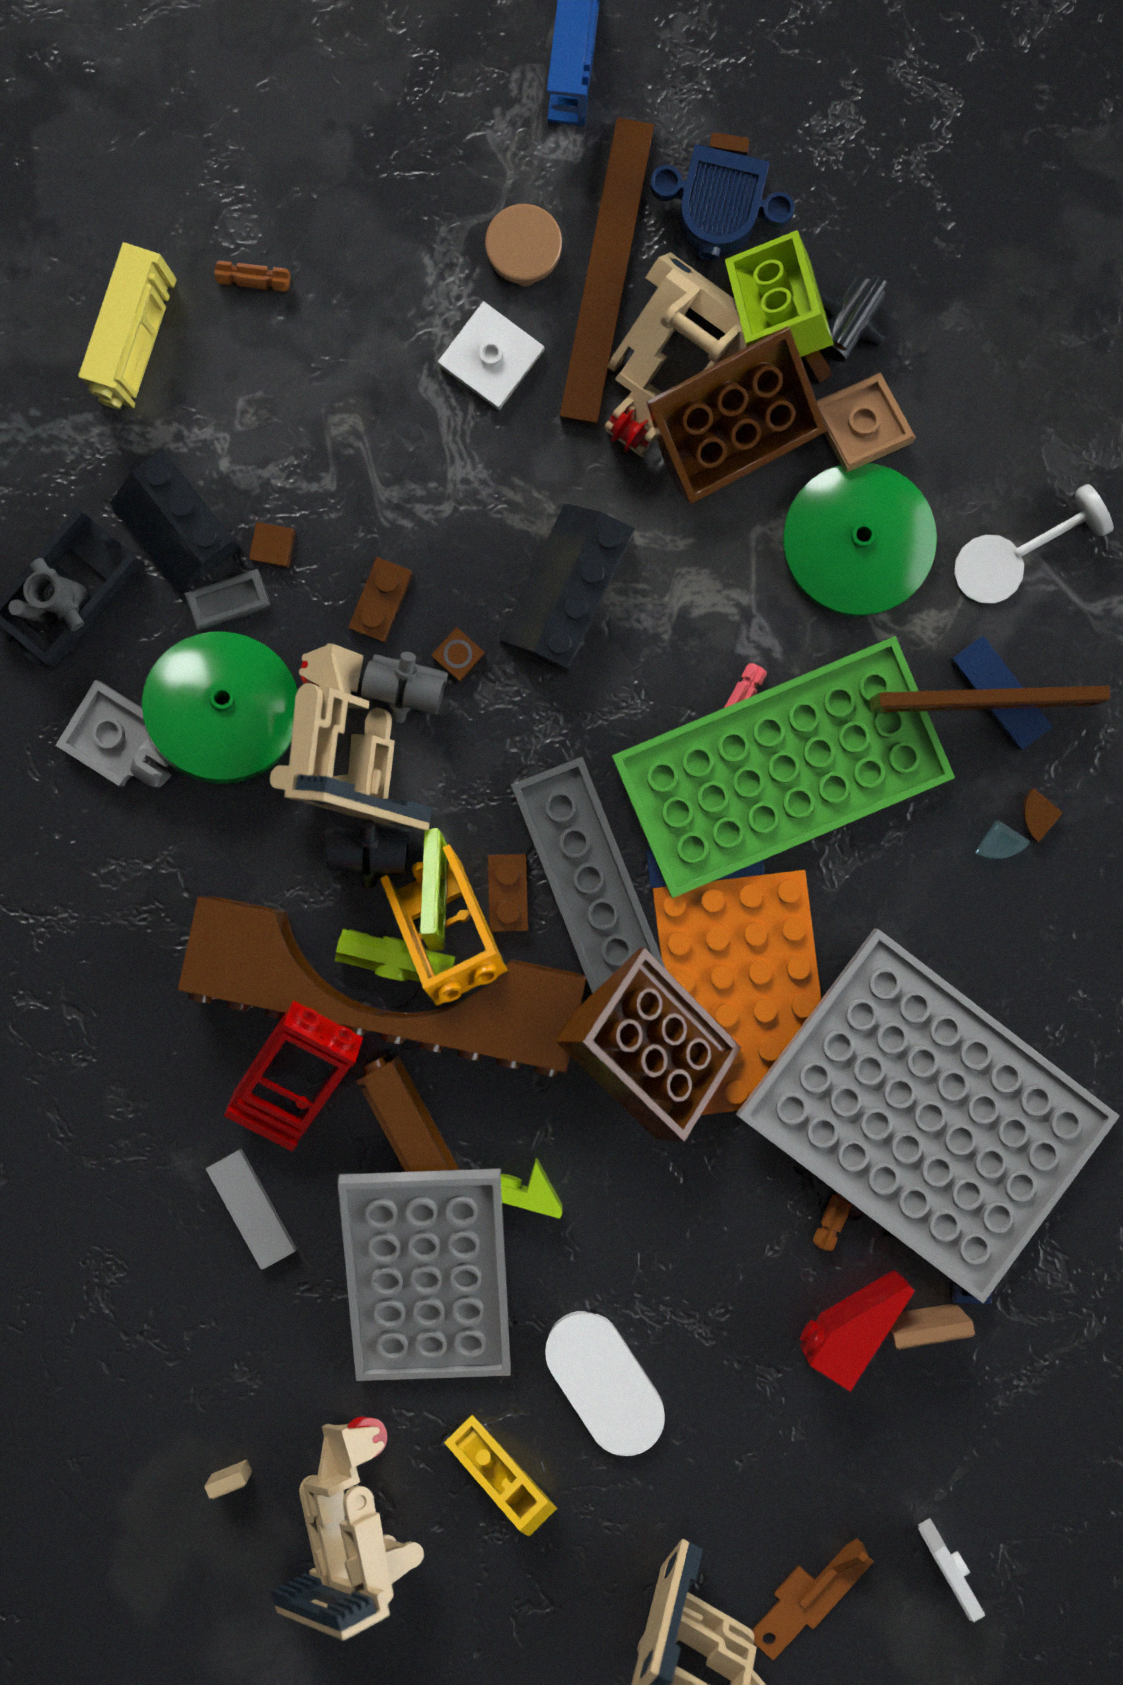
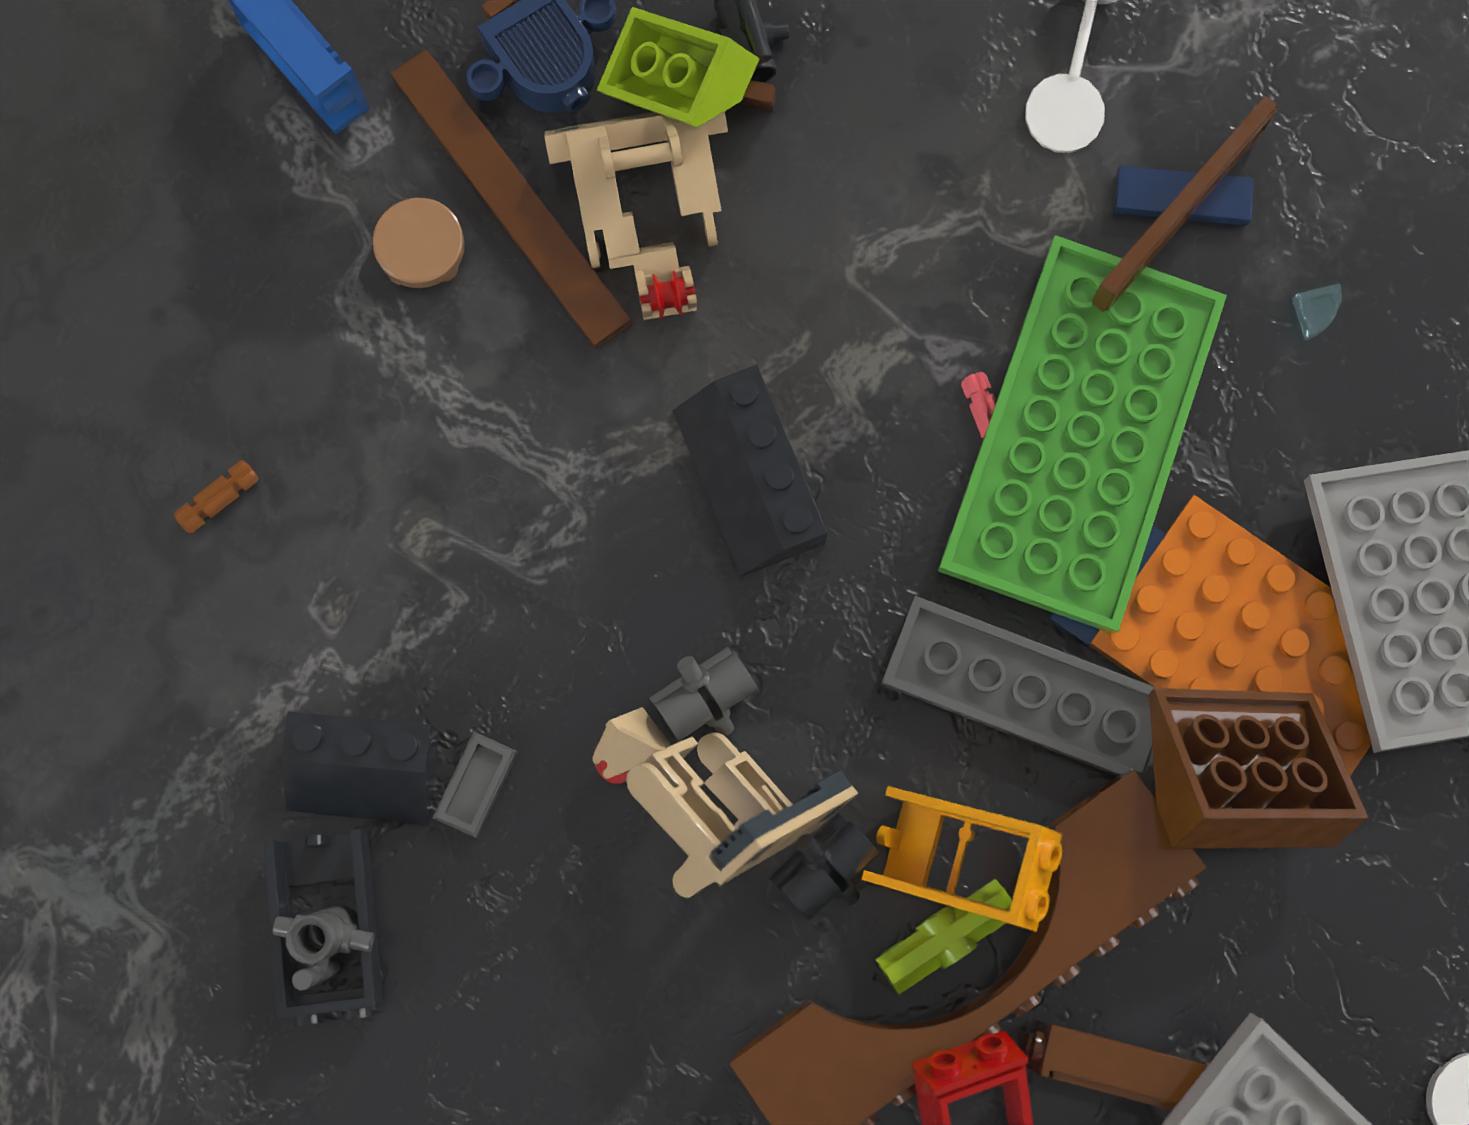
camera: 45 degrees left, 10 degrees down
(112, 738) = (505, 1006): light grey plate -> none
(127, 326) = (151, 643): light yellow door -> none
(213, 739) = (577, 920): green dish -> none
(272, 545) = (465, 698): reddish brown tile -> none
(380, 600) = (606, 647): reddish brown plate -> none
(434, 890) = (920, 837): lime tile -> none
(458, 654) = (719, 623): reddish brown tile -> none
(491, 355) = (485, 357): white plate -> none
(508, 892) = (976, 775): reddish brown plate -> none
(536, 1197) = (1289, 1007): lime slope -> none
(735, 416) = (743, 194): reddish brown slope -> none
(853, 574) = (931, 230): green dish -> none
(864, 423) = (842, 103): medium nougat plate -> none
(1038, 814) = (1321, 256): reddish brown tile -> none

